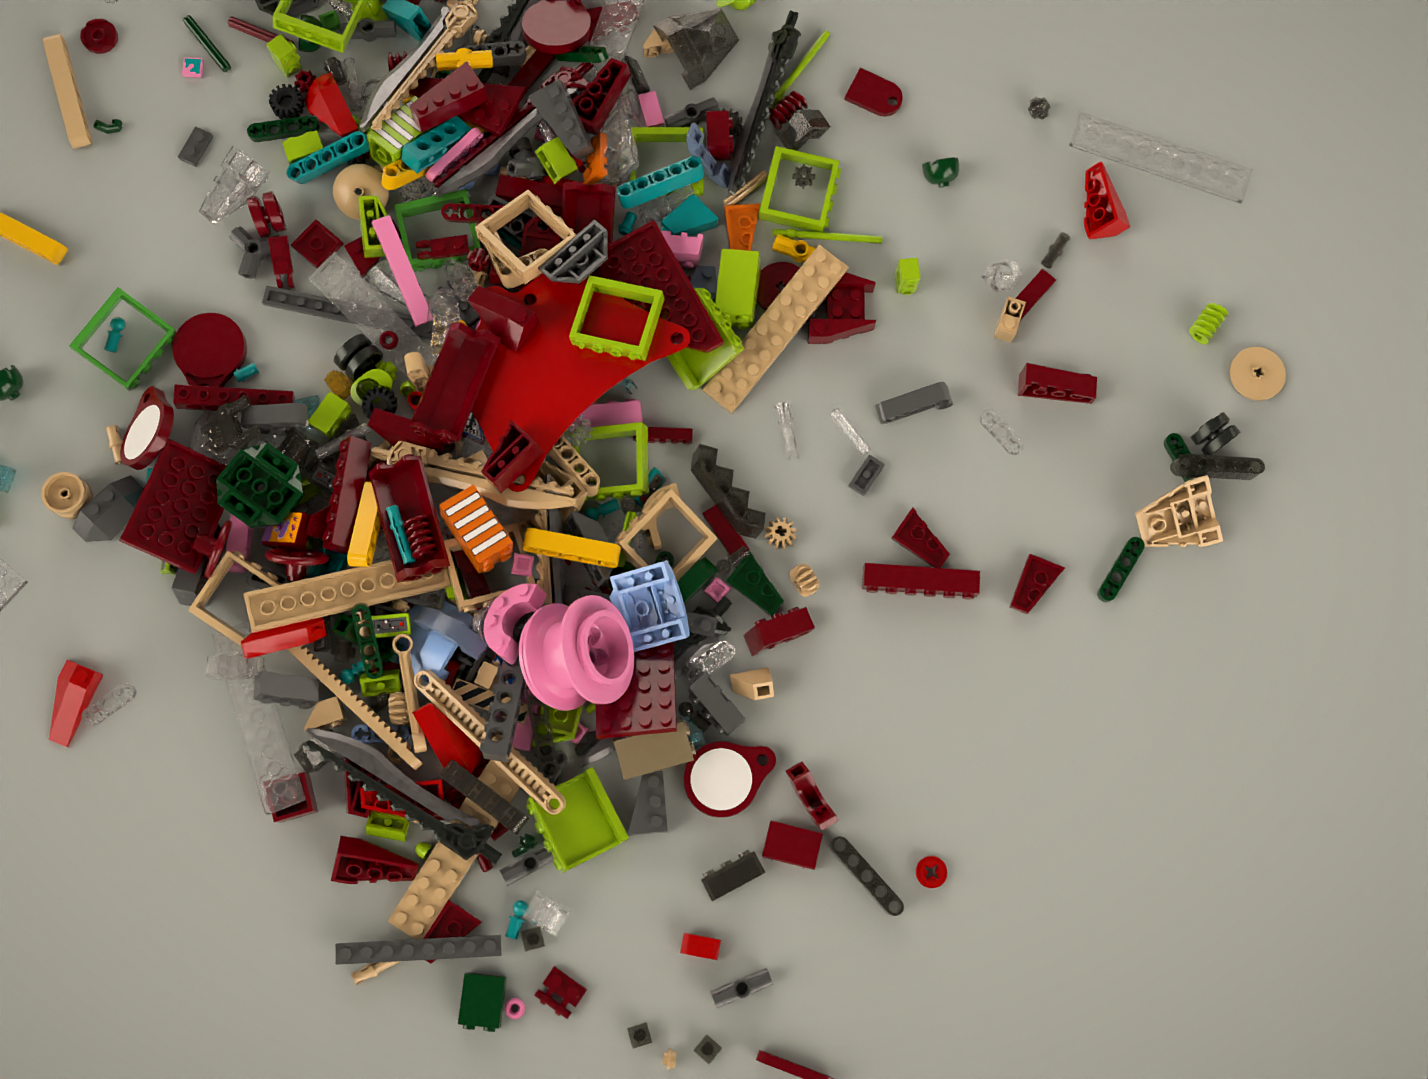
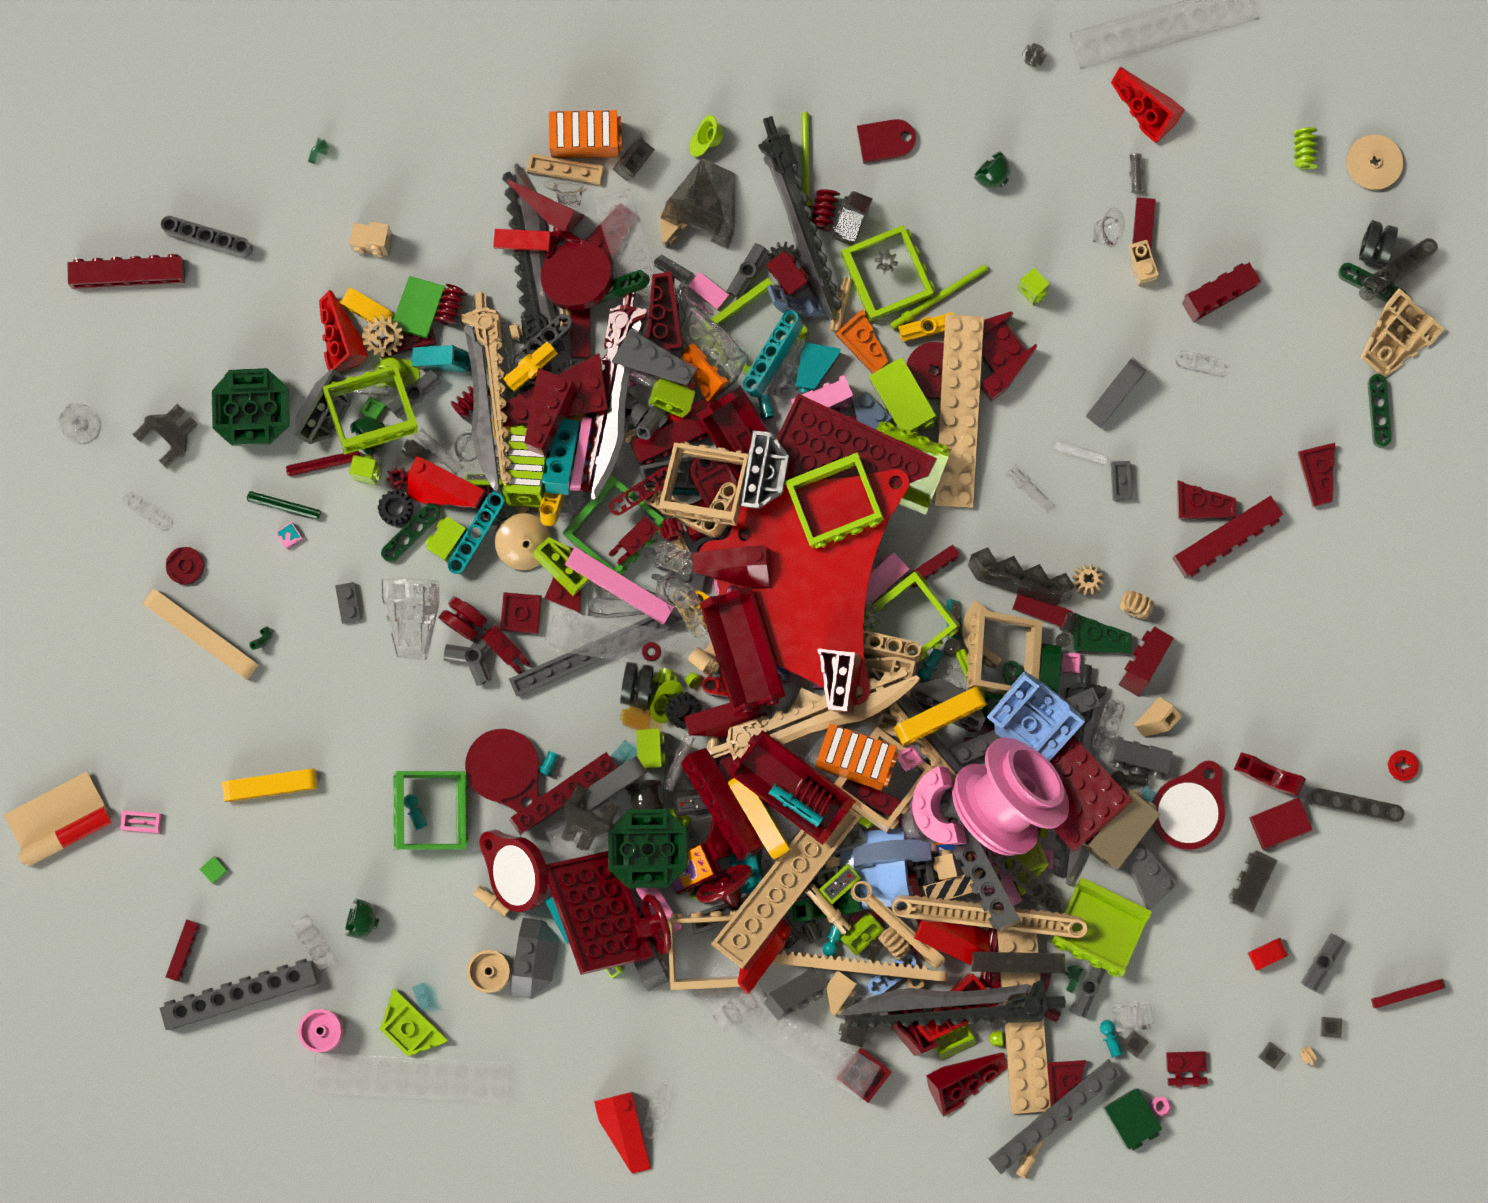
camera: 30 degrees left, 5 degrees up
(367, 640) = (831, 910): dark green beam -> none

